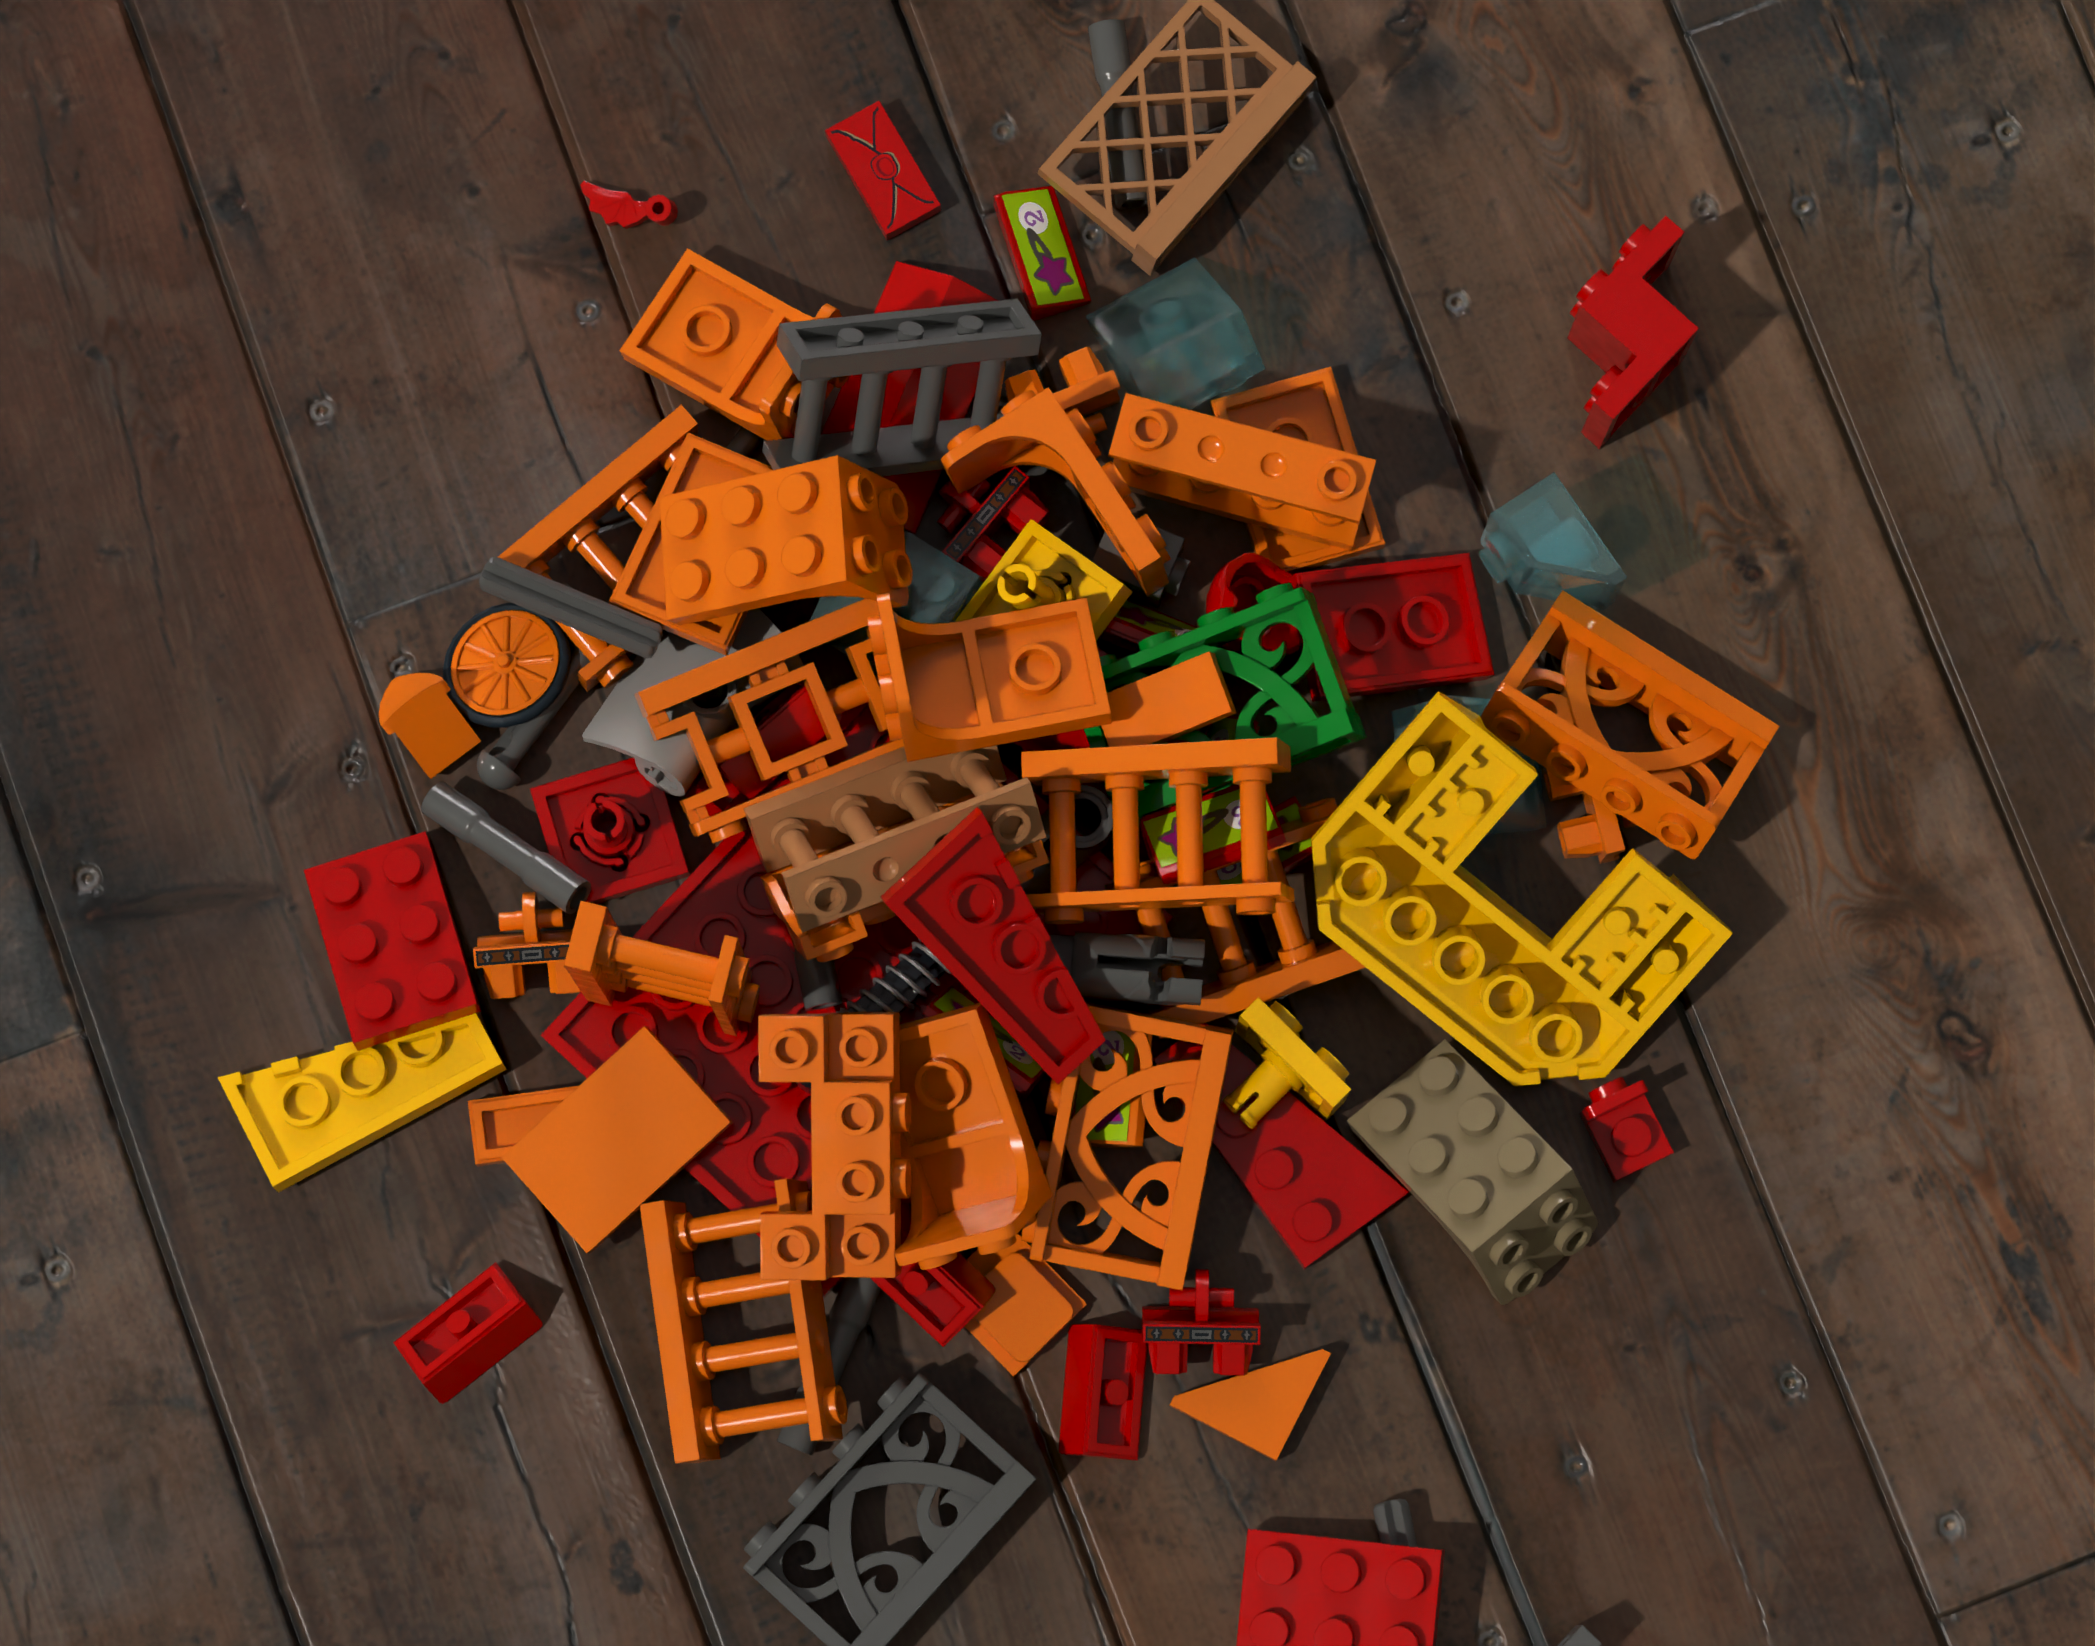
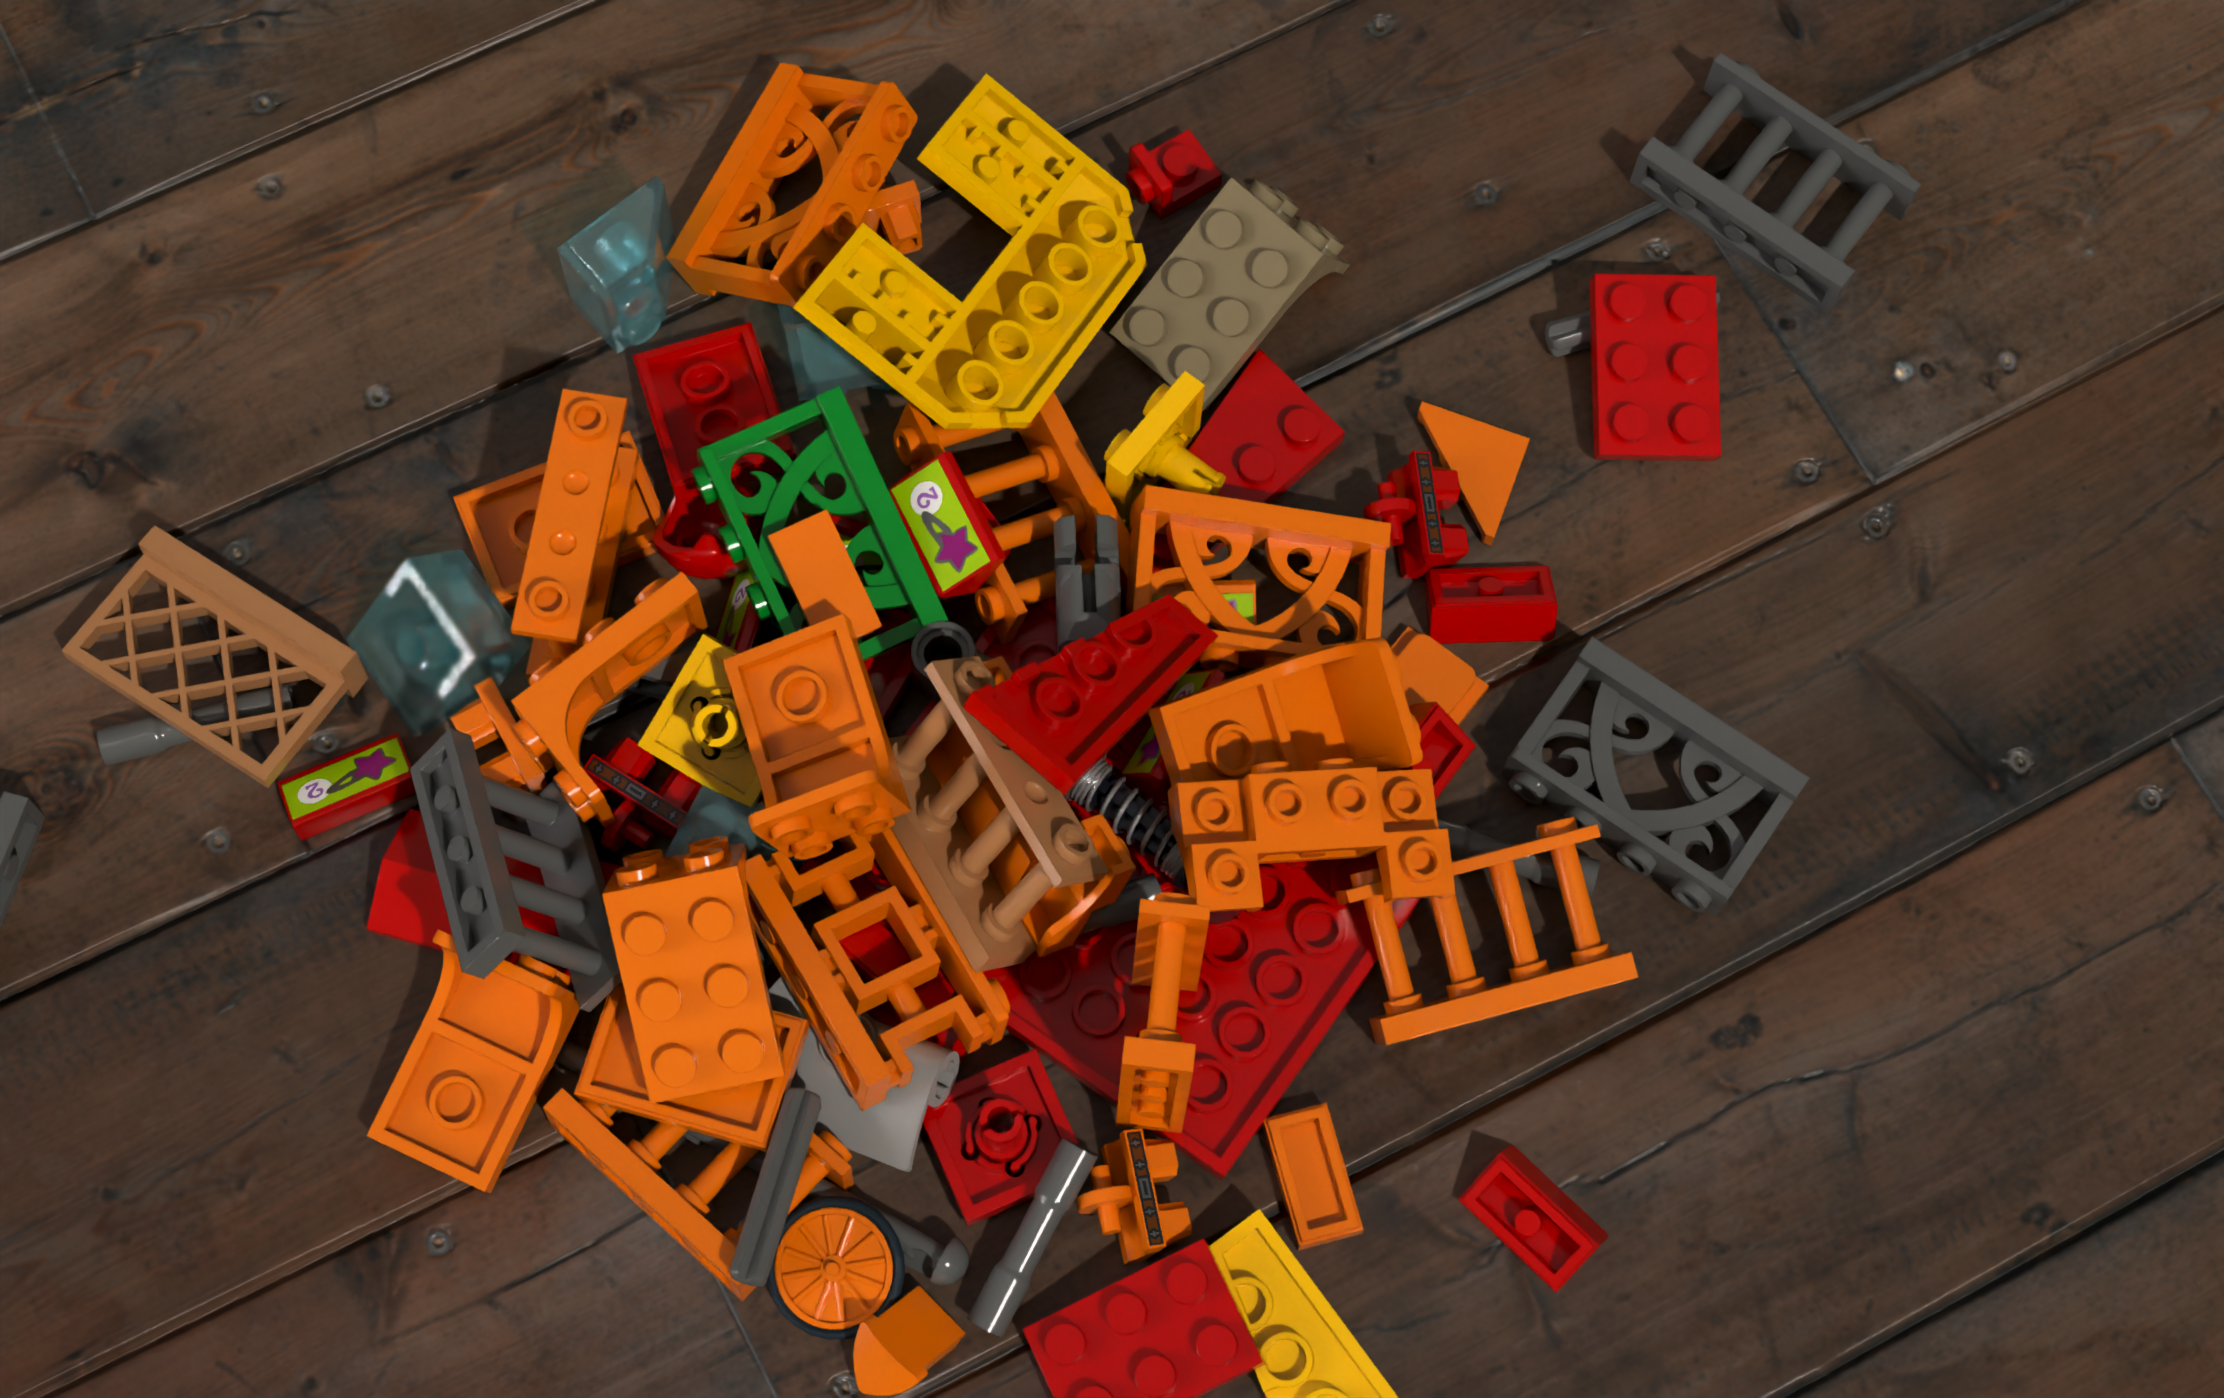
camera: 100 degrees left, 10 degrees down
(617, 1140) = (1322, 1080): orange tile -> none
(622, 209) = (324, 1217): red piece -> none
(883, 170) = (268, 952): red tile -> none
(1124, 774) = (896, 536): orange fence -> none
(1630, 329) = (404, 216): red bracket -> none

